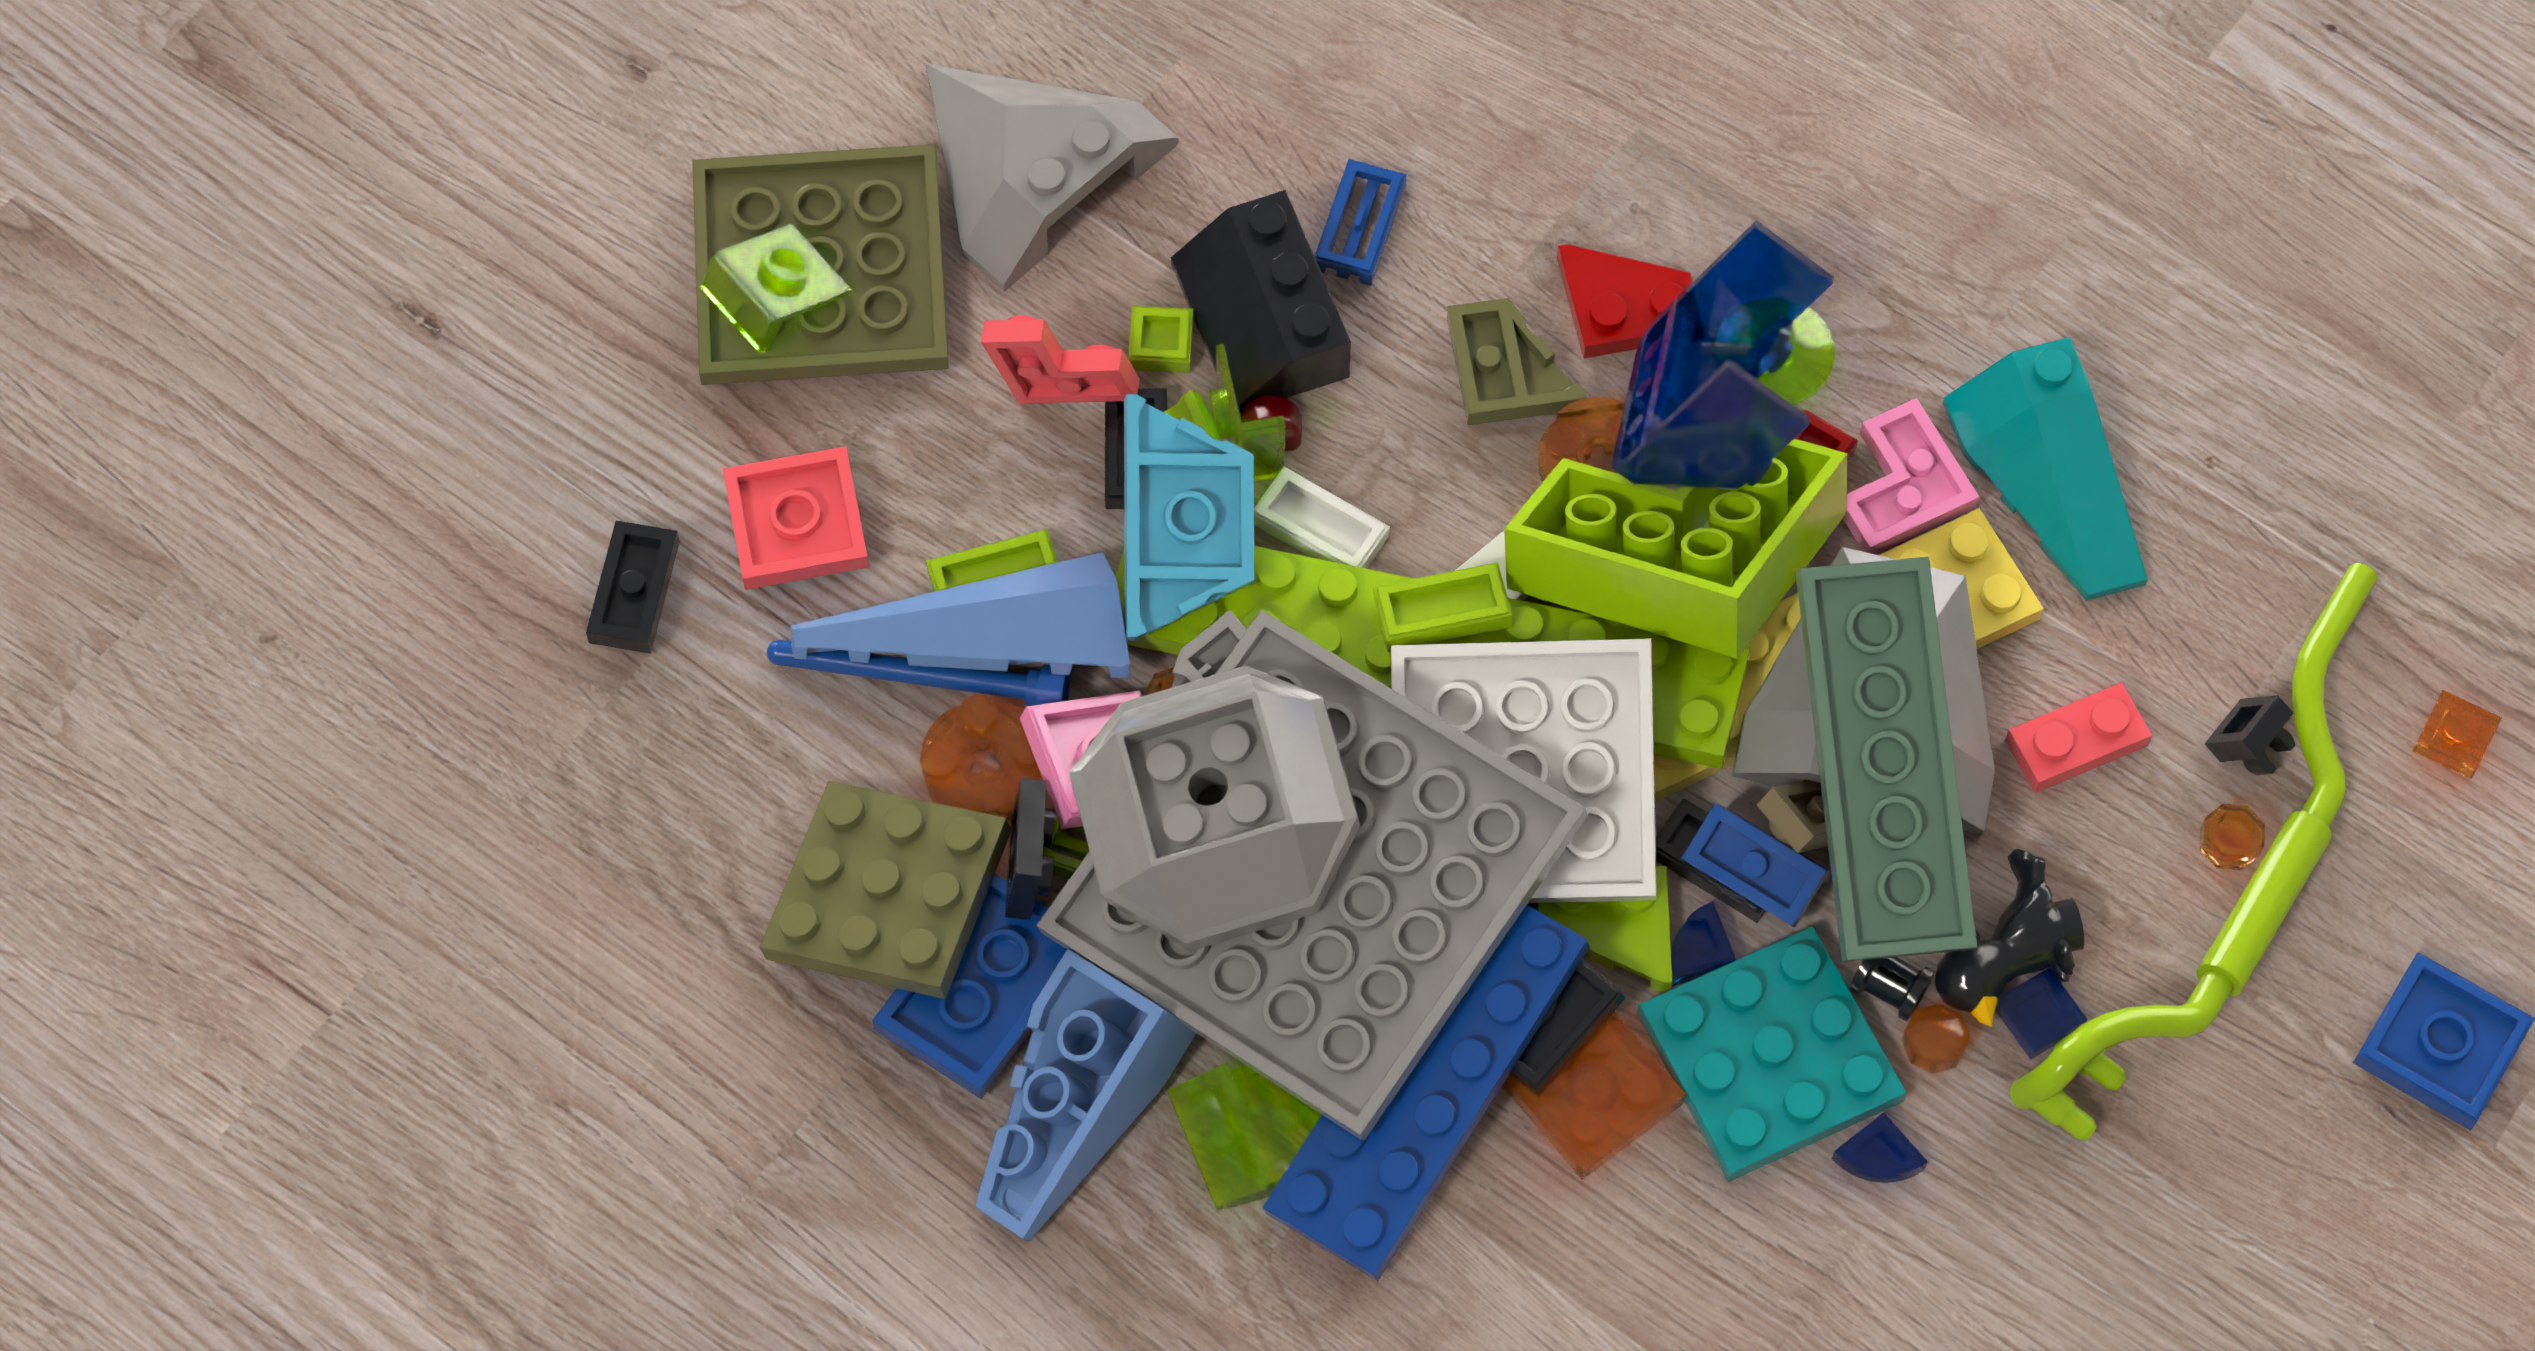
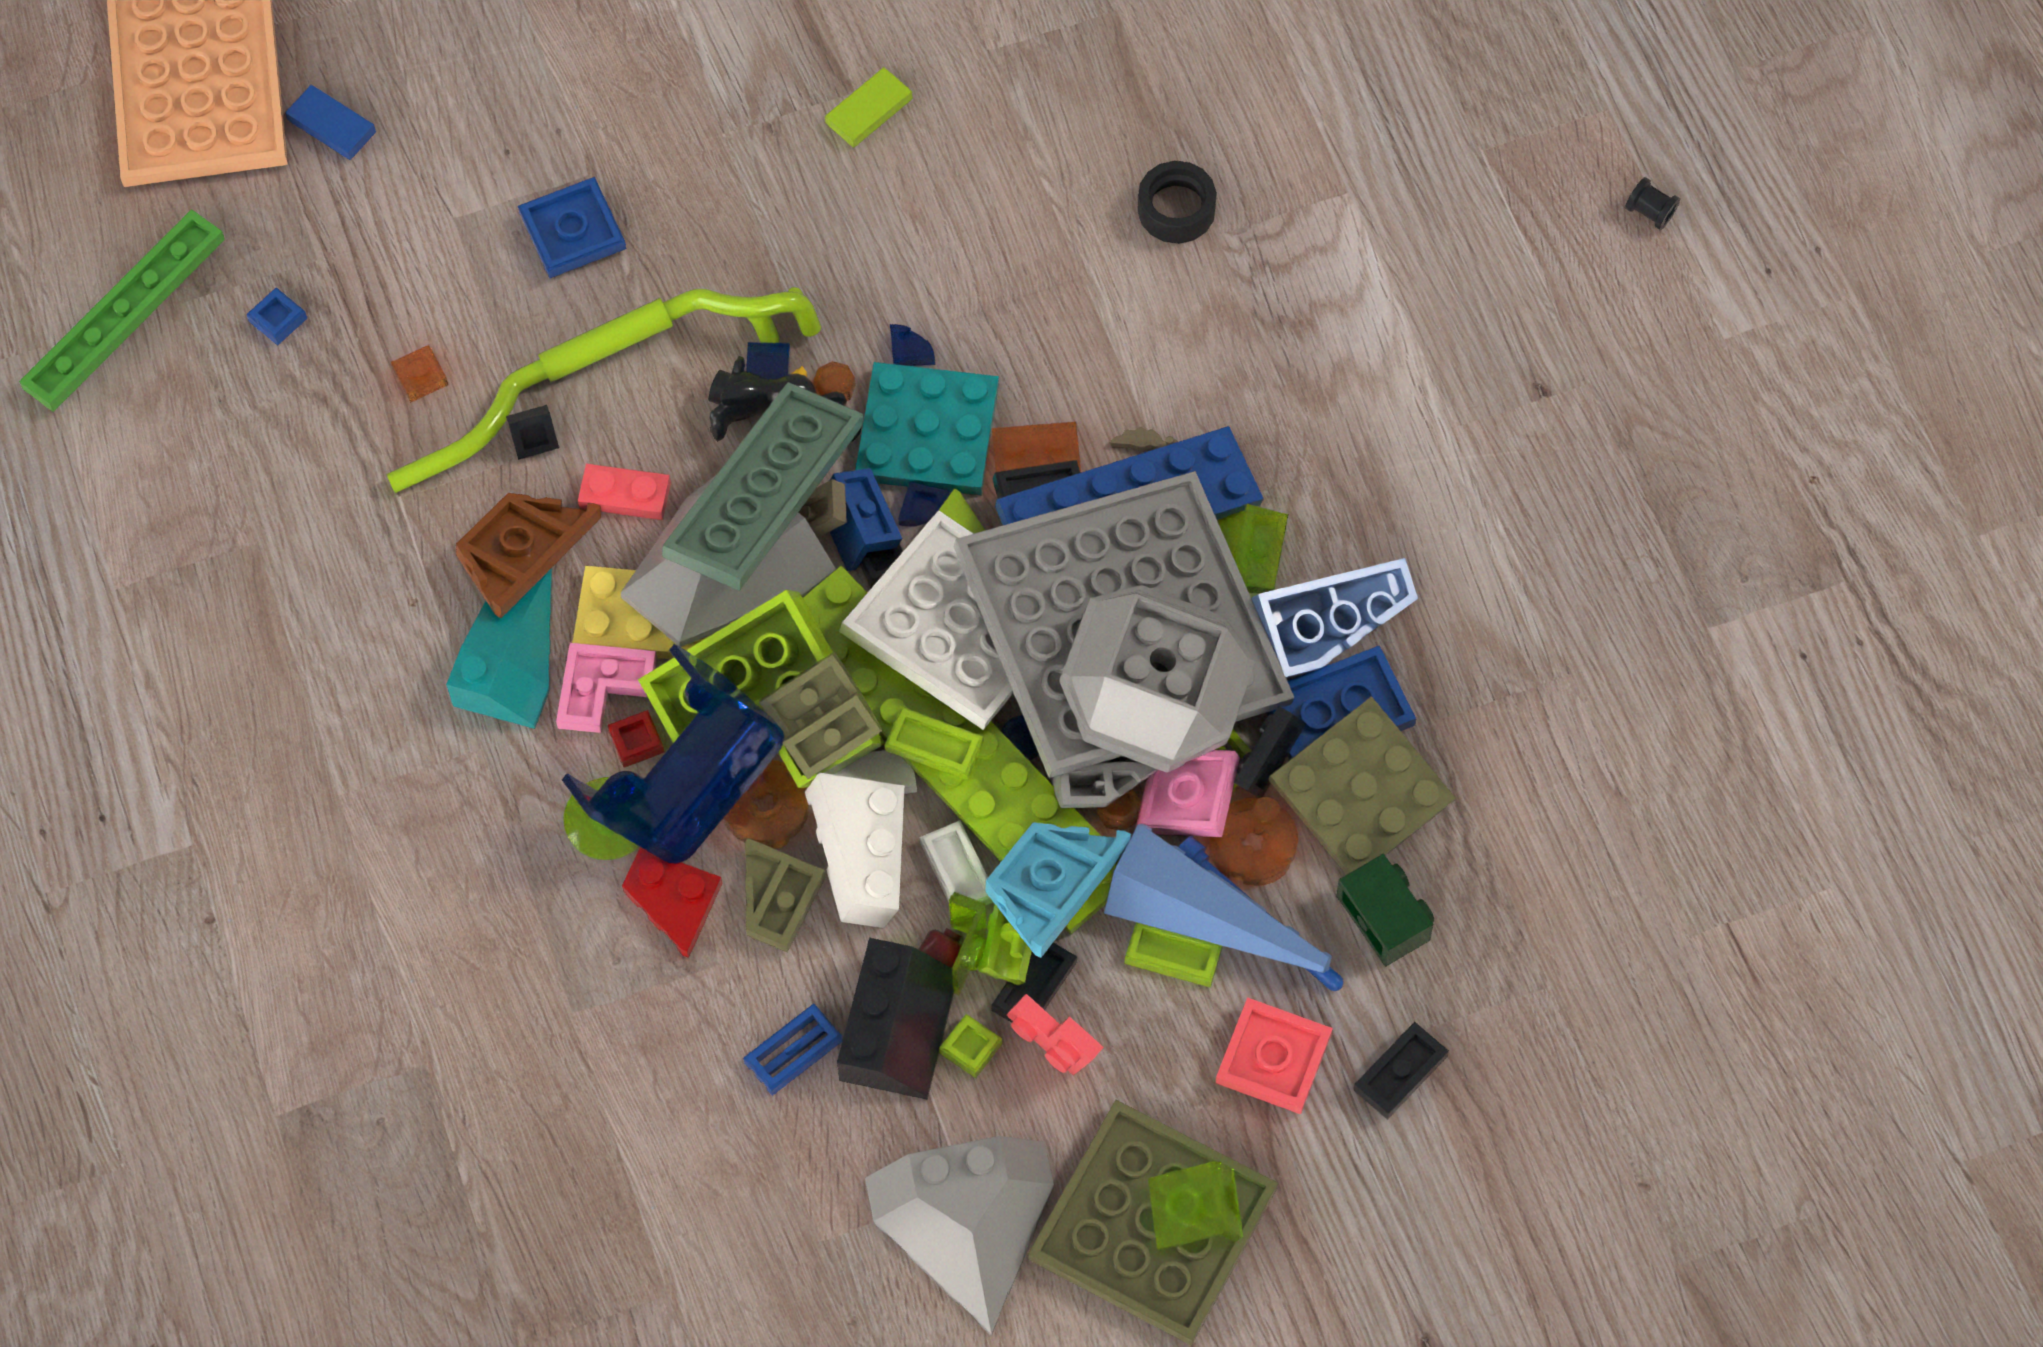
camera: 145 degrees left, 0 degrees up
(764, 759) = (1385, 909): none -> dark green brick
(1447, 458) = (862, 844): none -> white wedge
(1479, 1212) = (1141, 440): none -> dark tan piece
(1586, 512) = (821, 715): none -> olive slope
(2138, 575) = (520, 544): none -> dark orange wing
(2232, 837) = (589, 388): clear orange tile -> none

